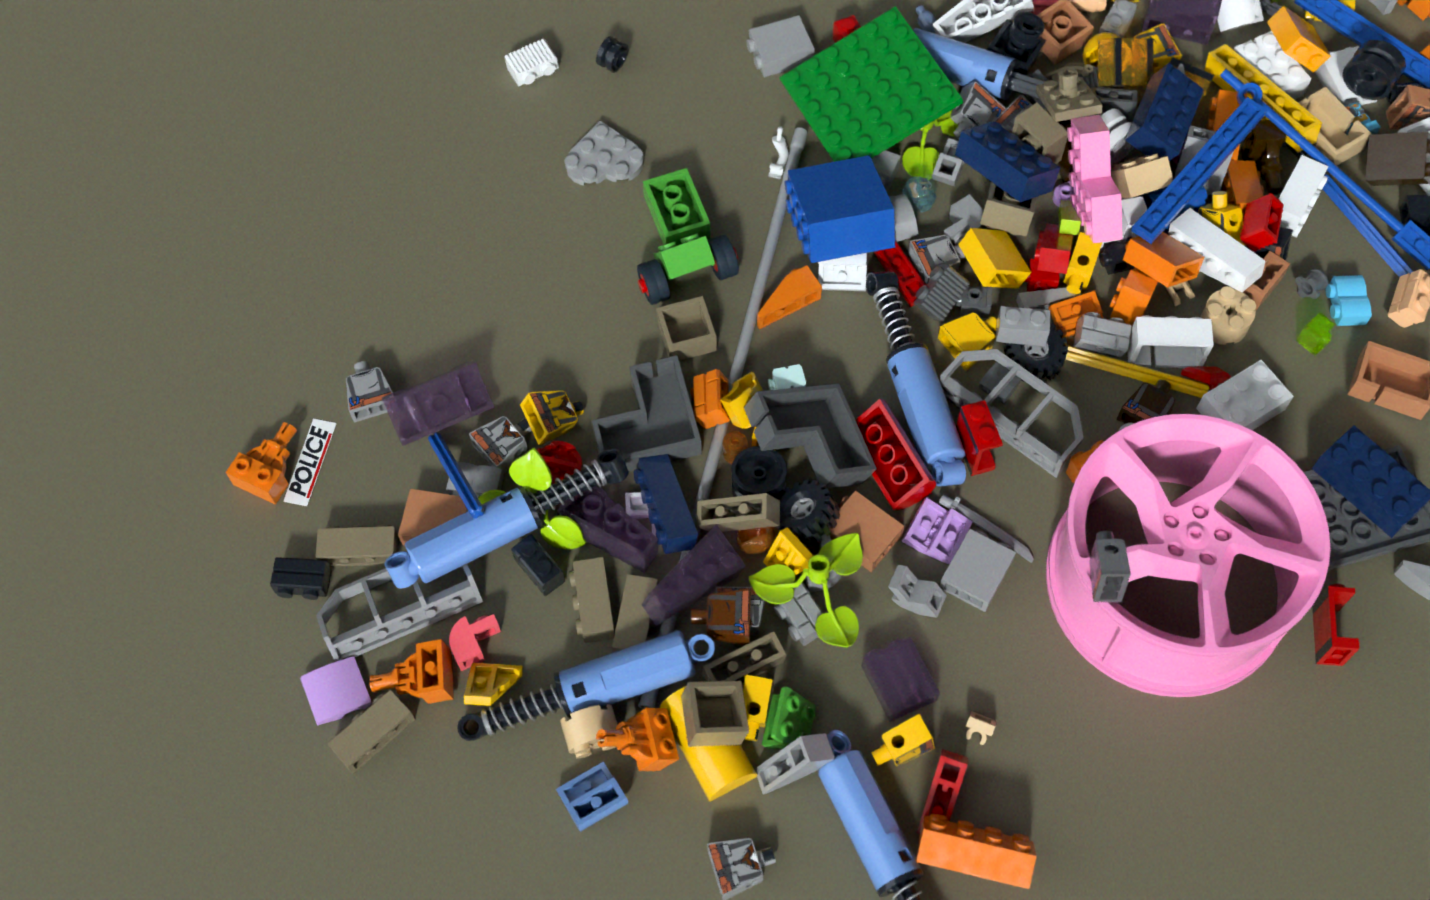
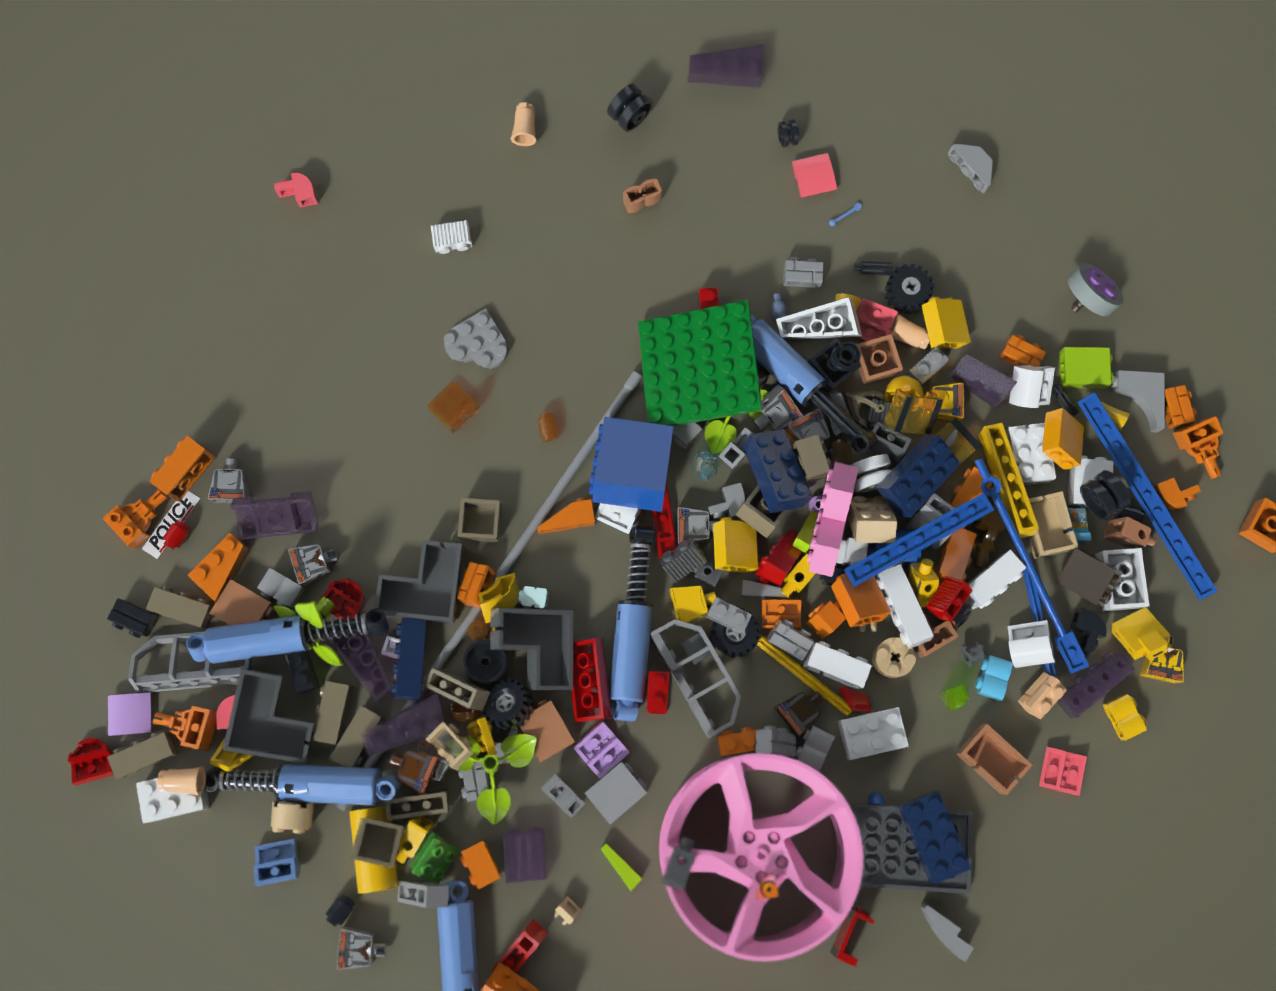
camera: 15 degrees right, 15 degrees up
(305, 762) = (90, 761): none -> red slope
(306, 388) = (182, 468): none -> orange brick
(322, 467) = (176, 535): none -> red brick
(336, 66) = (298, 186): none -> coral brick
(389, 483) = (219, 566): none -> orange wedge
(428, 764) = (160, 805): none -> white brick
(438, 728) = (182, 780): none -> light nougat plant
(456, 475) = (262, 604): blue axle -> none
(508, 639) = (256, 729): none -> dark grey piece
(550, 414) = (354, 555): torso -> none
(605, 228) = (453, 407): none -> clear orange bracket
(612, 54) = (516, 252): black wheel -> none
(645, 738) = (327, 837): orange brick -> none
(676, 207) = (512, 413): bright green brick -> none
(684, 258) = (499, 461): brick -> none
(695, 827) = (340, 910): none -> black brick
(723, 214) = (548, 427): none -> clear orange brick
(758, 571) = (450, 745): none -> tan window
(780, 46) = (651, 291): light grey brick -> none
(780, 144) = (617, 377): white piece -> none
(851, 707) = (481, 864): none -> orange brick
(904, 218) = (678, 480): light grey brick -> none
(912, 734) = (514, 906): yellow torso -> none
(987, 526) = (622, 734): light grey sword -> none
(1023, 653) = (627, 874): none -> lime piece
(1068, 97) = (844, 440): dark tan plate -> none
(1223, 560) = (767, 888): none -> orange tile
(1372, 250) = (1030, 644): none -> white brick

